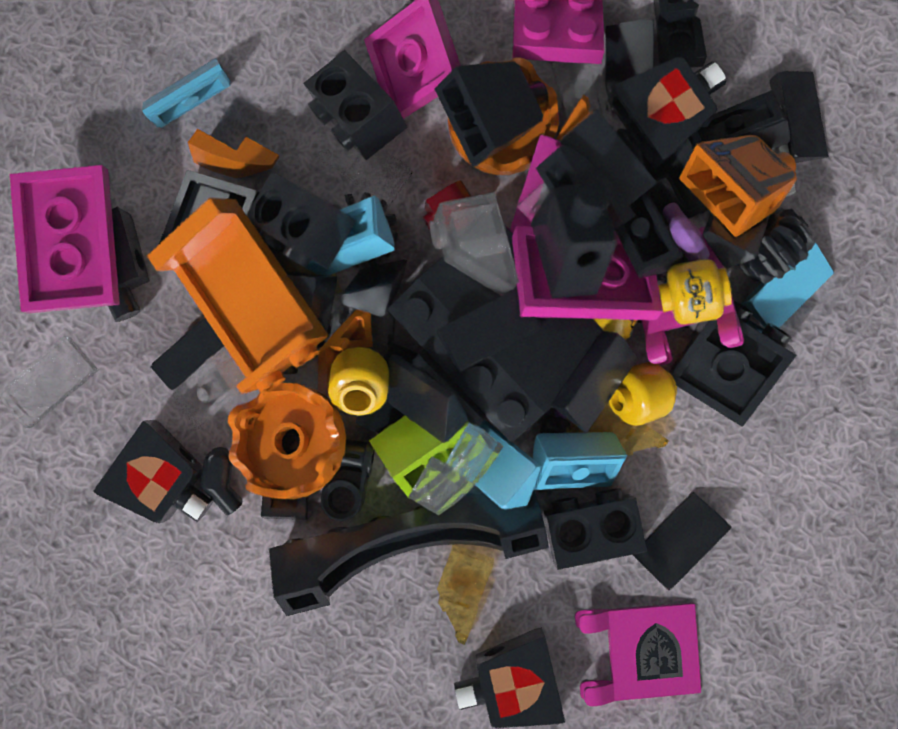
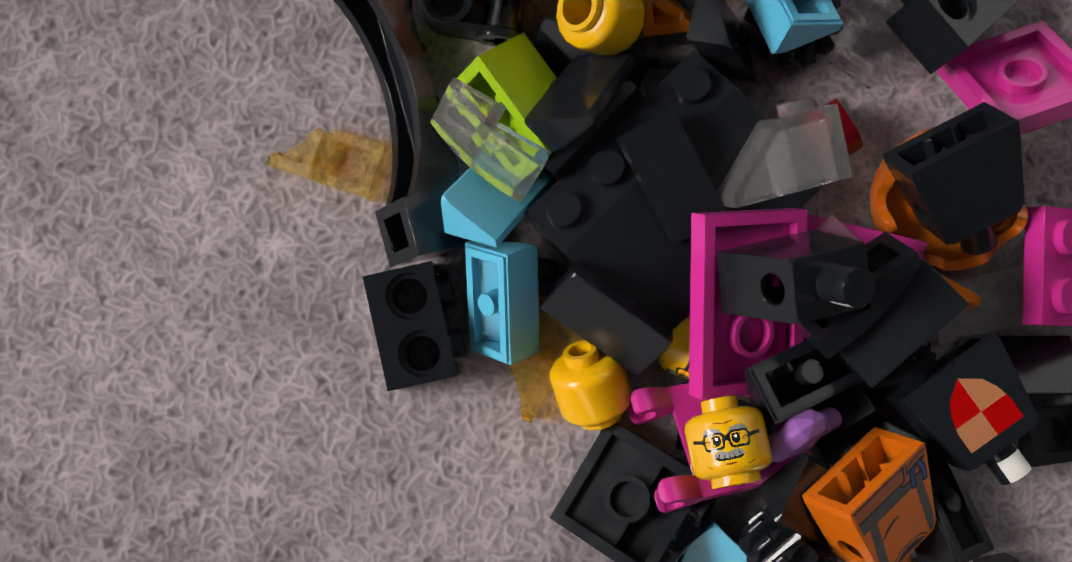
camera: 85 degrees right, 0 degrees up
(514, 684) = (215, 227): black torso -> none
(649, 652) = (257, 403): dark pink flag -> none
(682, 541) = (401, 440): black slope -> none

